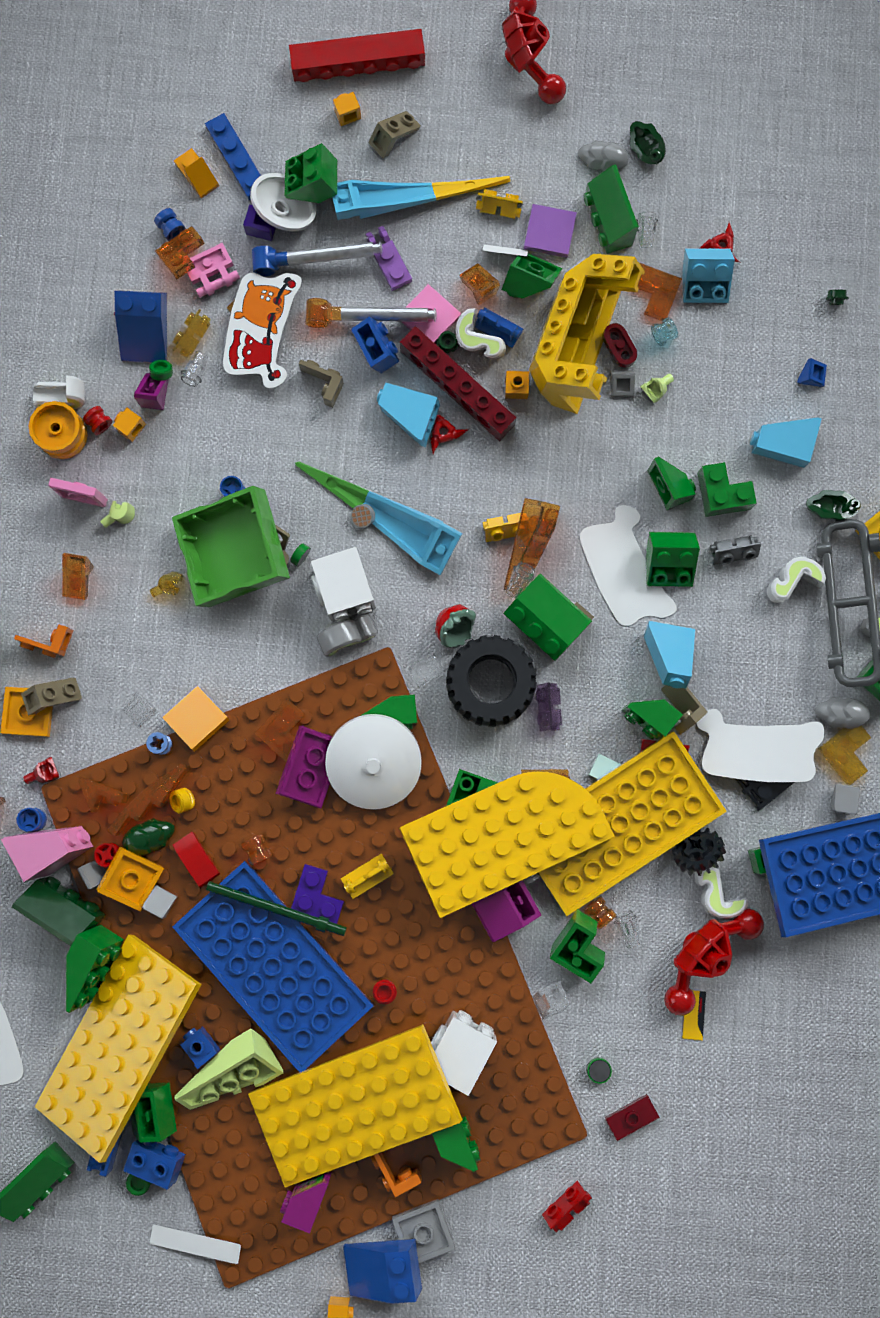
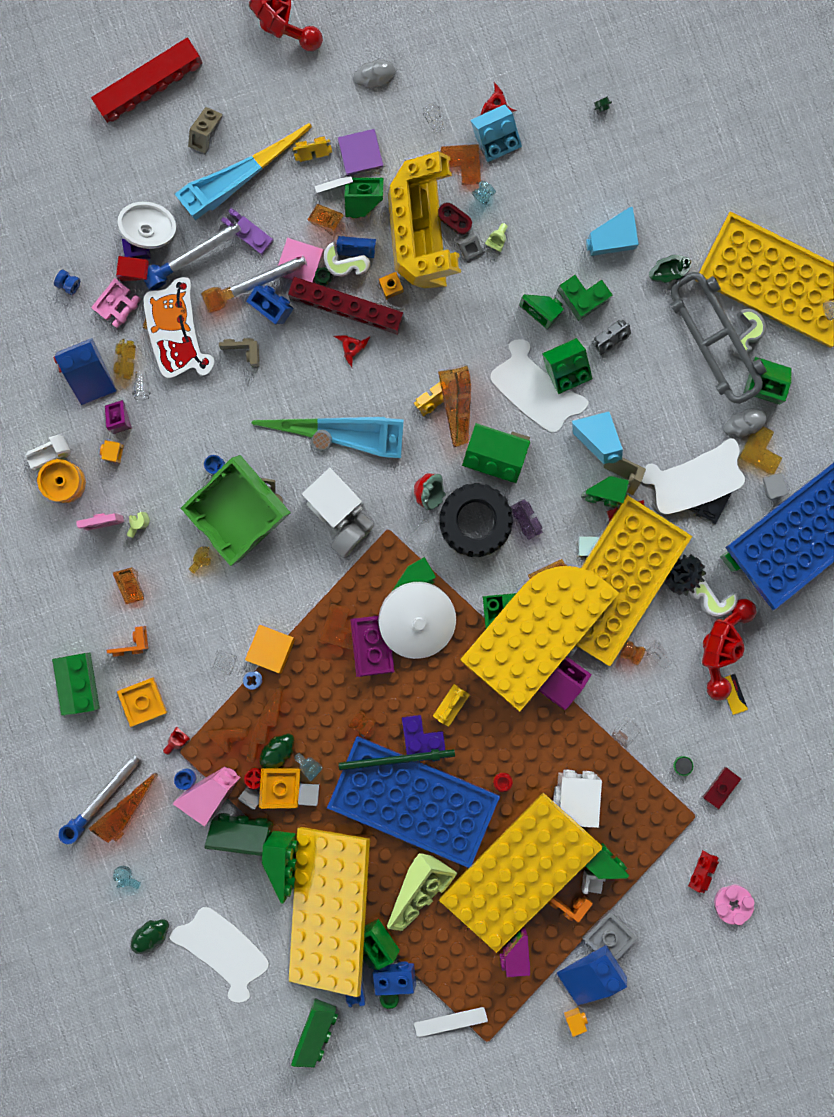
camera: 20 degrees left, 5 degrees up
(50, 694) = (154, 681): dark tan bracket -> none
(97, 420) = (86, 459): red wheel -> none
(161, 370) = (115, 398): green tile -> none
(174, 870) = (308, 766): none -> clear light blue piece
(175, 252) = (81, 300): clear orange plate -> none
(181, 800) = (289, 713): yellow tile -> none
(196, 172) = (67, 231): light orange slope -> none
(196, 859) = (320, 751): red slope -> none
(208, 1046) = (395, 881): blue brick -> none
(233, 152) = (89, 202): blue plate -> none
(243, 239) = (131, 269): none -> red slope
(300, 554) = (288, 491): green tile -> none
(311, 175) = (158, 194): green slope -> none
(347, 108) = (159, 127): light orange plate -> none
(409, 410) = (319, 343): medium azure slope -> none
(431, 1158) = (591, 883): none -> white panel
(520, 578) = (463, 432): clear cone -> none
(574, 947) = (626, 687): green brick -> none
(584, 1277) = (736, 915): none -> bright pink plate
(611, 210) = (400, 116): green slope -> none
(647, 142) = (403, 48): dark green arm -> none
(790, 574) = (661, 338): white animal -> none
(813, 373) = (610, 173): blue slope -> none

